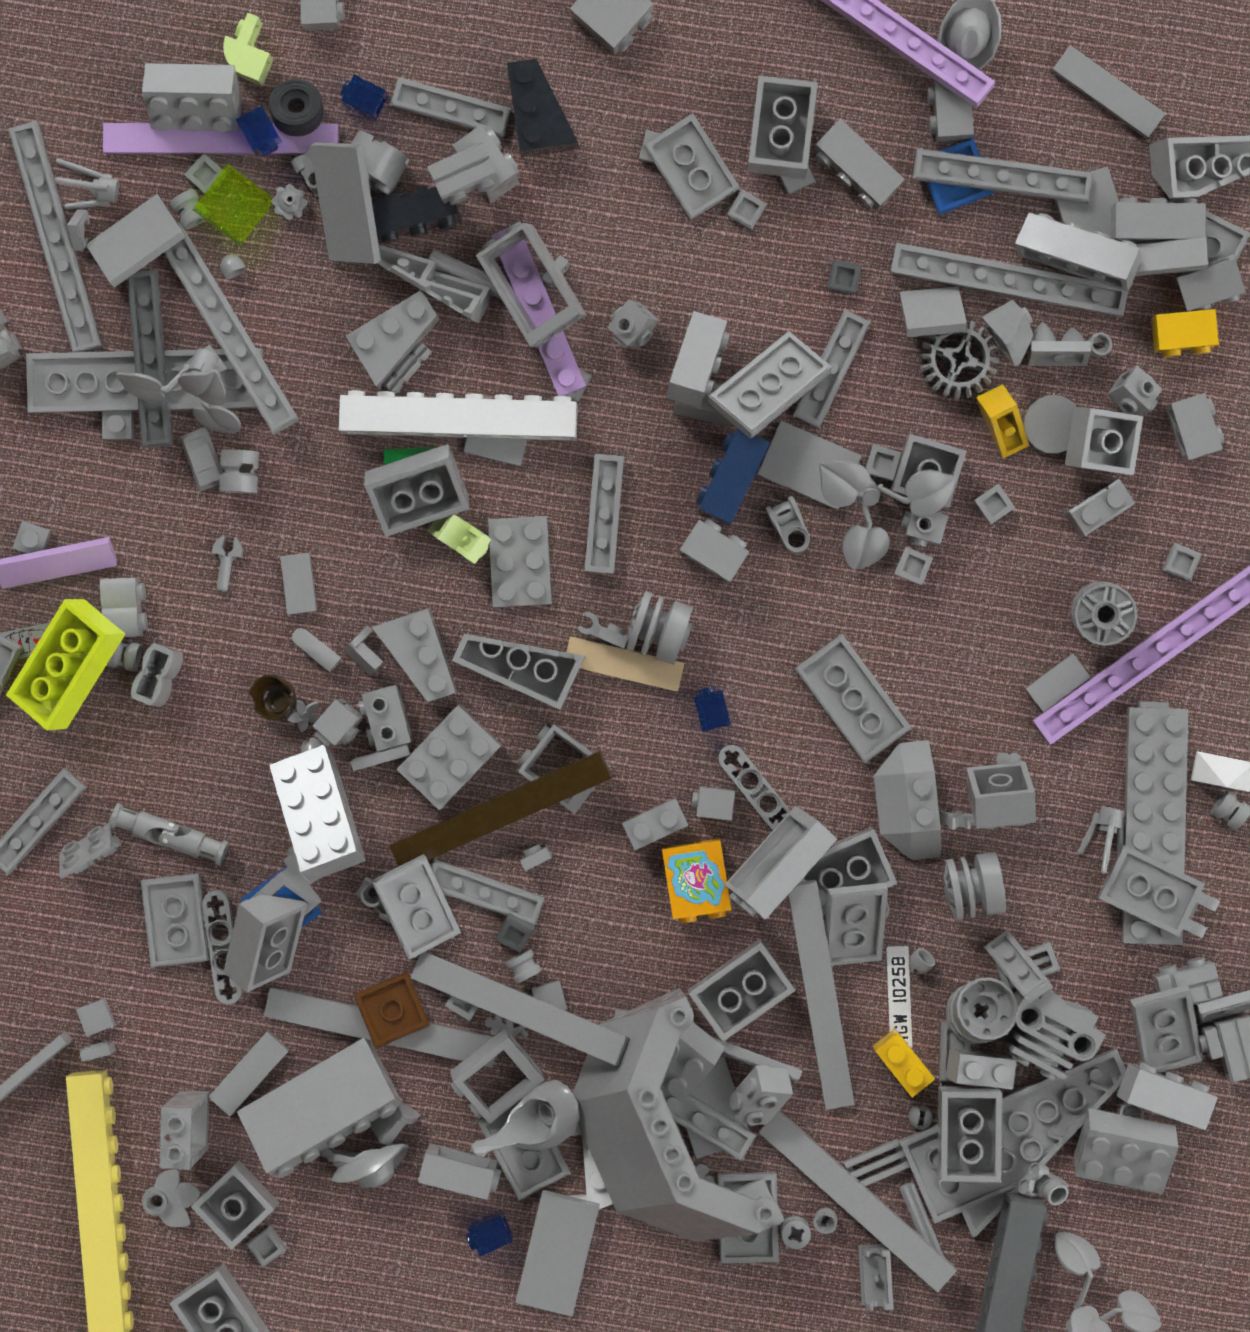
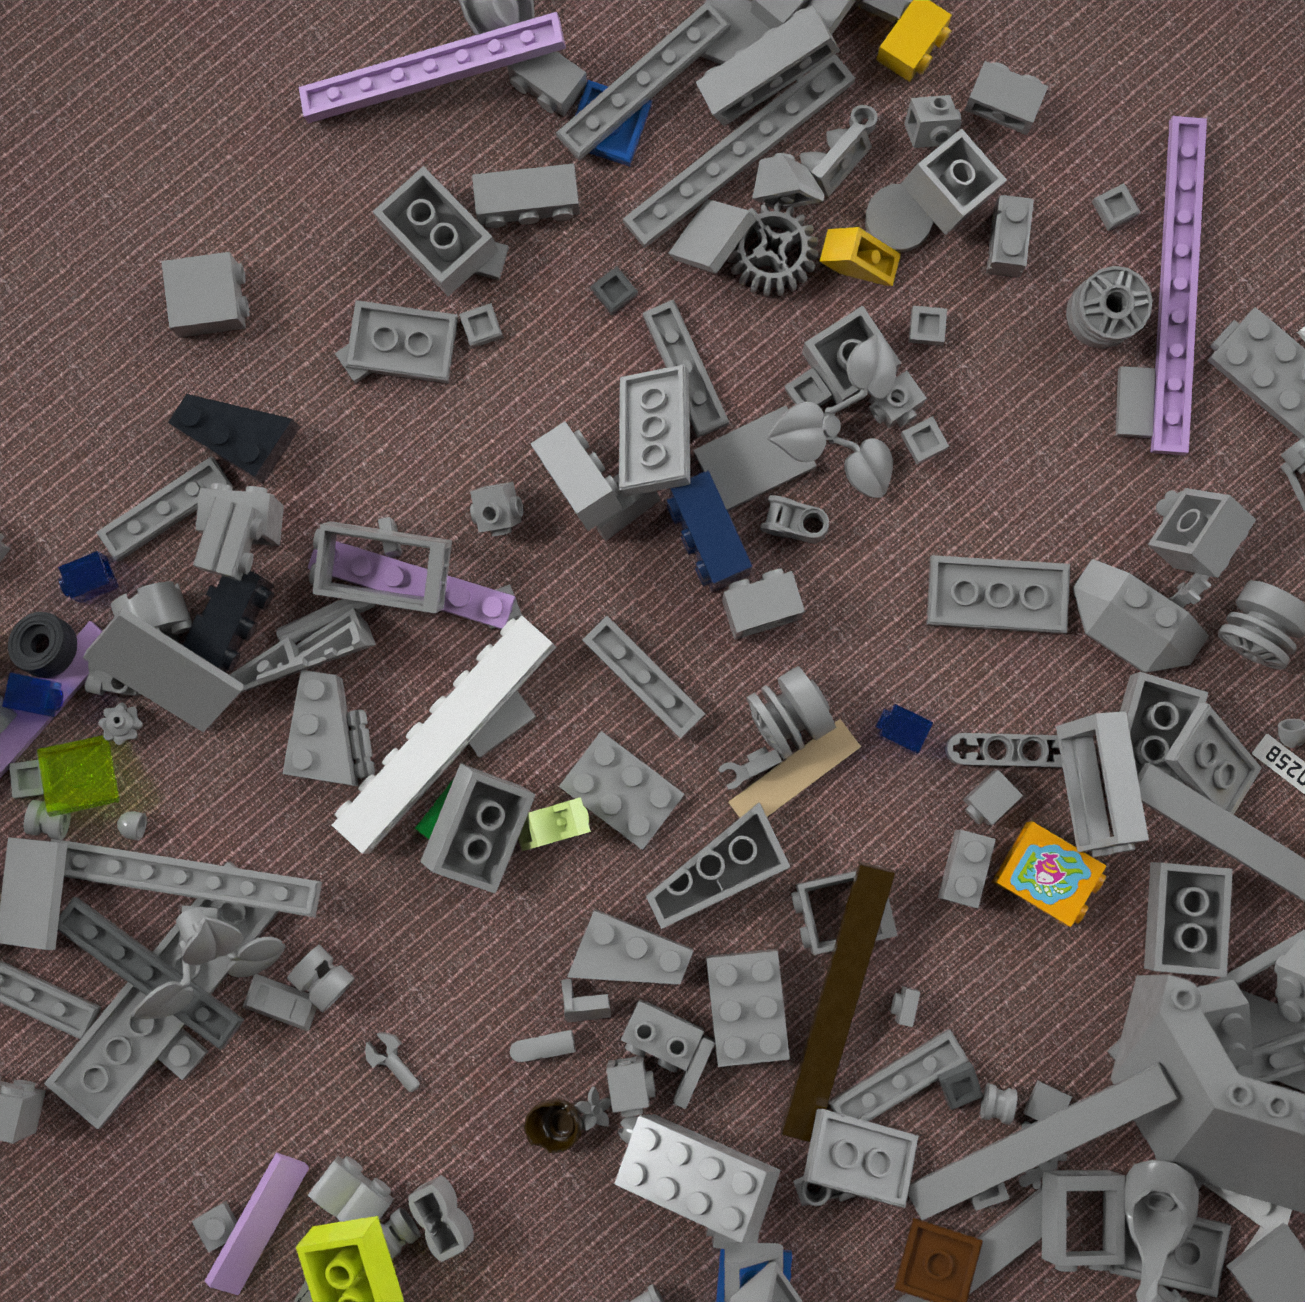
camera: 40 degrees left, 5 degrees down
(298, 583) = (469, 1011): light grey tile -> none

